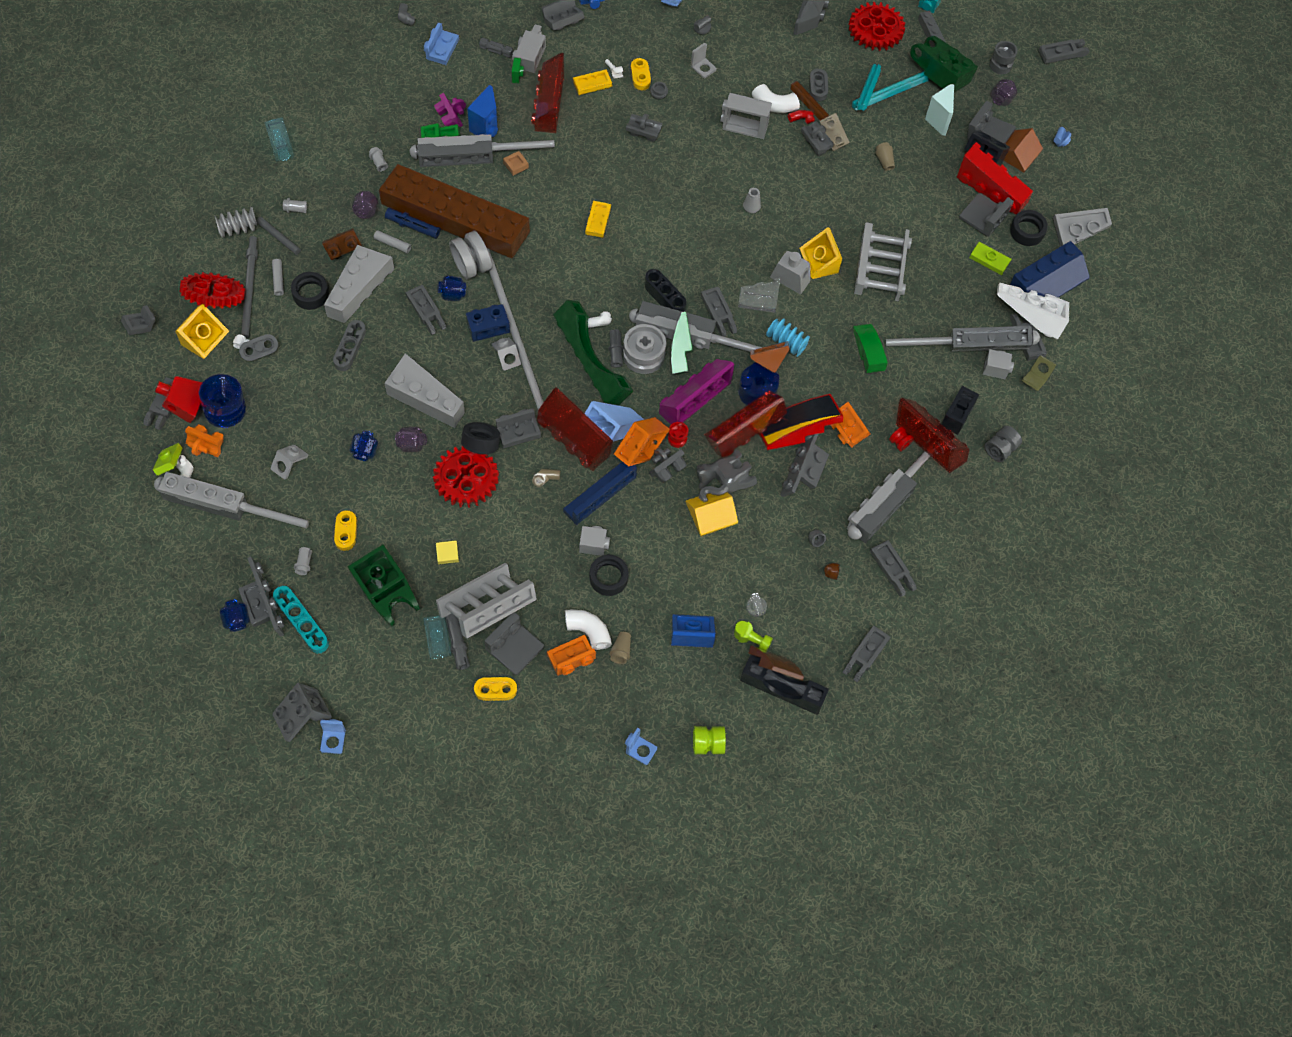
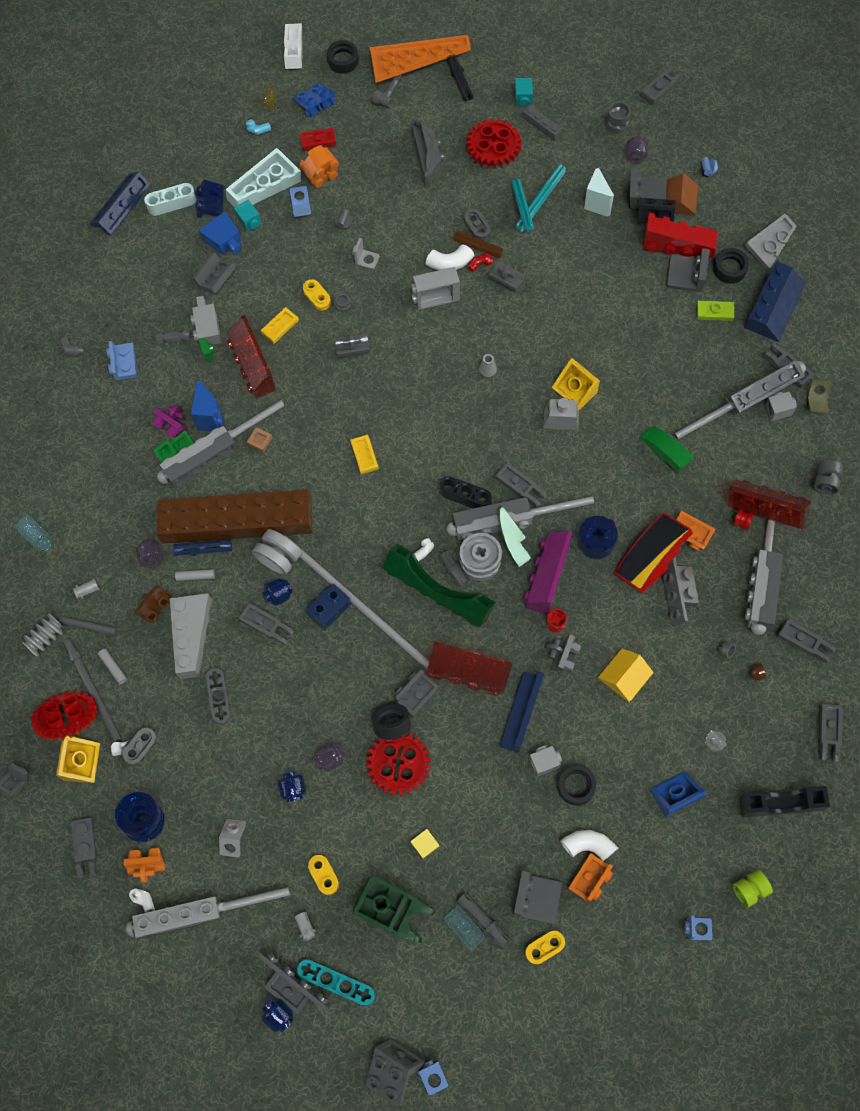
camera: 20 degrees left, 5 degrees up
(167, 459) = (124, 902): lime plate -> none
(181, 397) = (100, 834): red torso -> none
(309, 278) = (143, 651): black tyre -> none
(377, 156) = (134, 502): light grey pin -> none
(423, 392) = (313, 705): light grey wedge -> none
(493, 610) = (509, 879): light grey fence -> none
(506, 346) = (358, 622): light grey bracket -> none
(545, 475) = (465, 722): dark tan arm -> none
(612, 419) = (498, 640): light blue slope -> none
(616, 71) = (294, 304): white hand -> none
(621, 649) = (628, 848): dark tan cone -> none
(639, 443) = (535, 648): orange window -> none
(727, 474) = (623, 636): dark grey animal -> none
(745, 633) = (720, 771): lime leg -> none
(746, 423) = (611, 579): clear red slope -> none
(760, 296) = (547, 451): clear wing -> none
(771, 355) = (595, 504): dark orange slope -> none
(776, 663) = (769, 787): reddish brown slope -> none
(780, 332) = (594, 476): medium azure piece -> none
(835, 131) = (519, 262): dark tan hips -> none
(867, 251) = (618, 376): light grey fence -> none
(885, 155) = (573, 262): dark tan cone -> none
(944, 63) = (573, 150): dark green brick -> none
(960, 410) = (777, 466): black brick -> none
(1045, 313) = (791, 338): white wedge -> none

